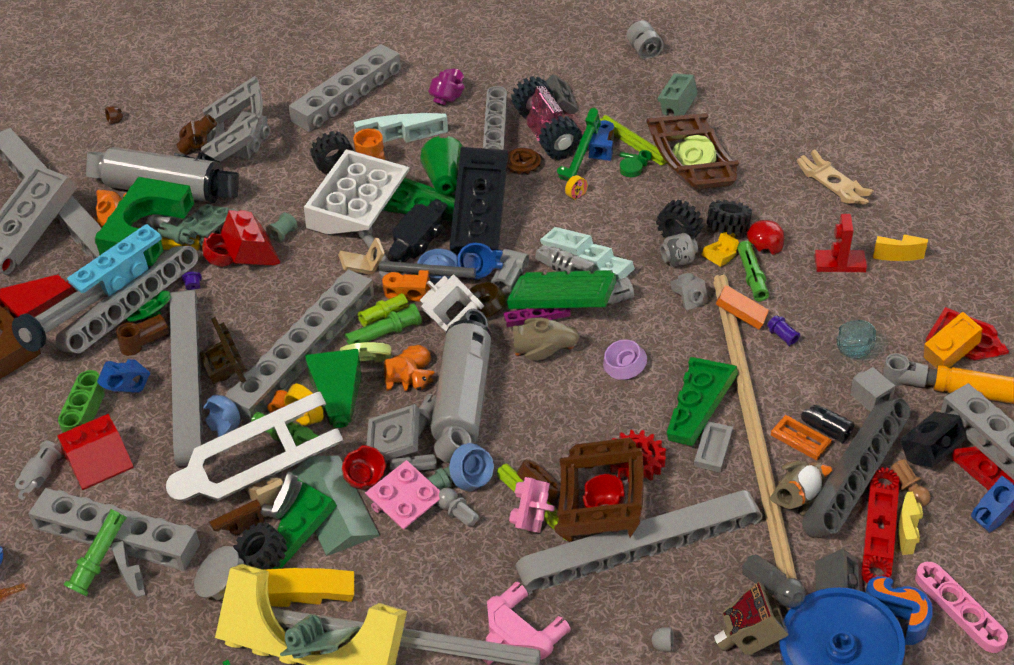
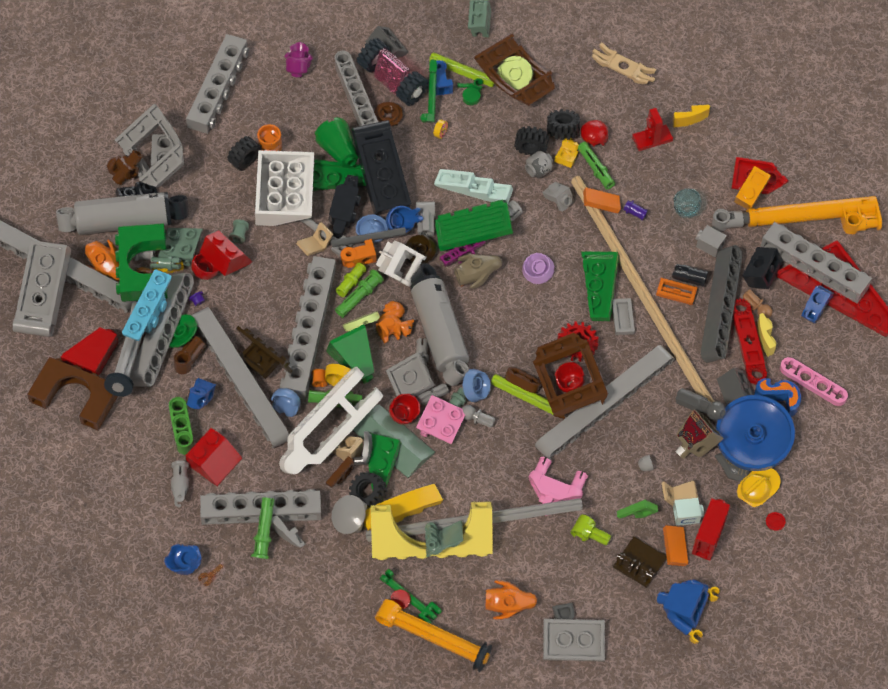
camera: 25 degrees left, 15 degrees up
(113, 114) = (41, 162): reddish brown hinge -> none
(406, 126) = (286, 108): light aqua slope -> none
(532, 505) = (530, 400): bright pink hips -> none
(562, 260) = (461, 198): light grey hinge -> none
(800, 484) = (691, 329): dark tan animal -> none

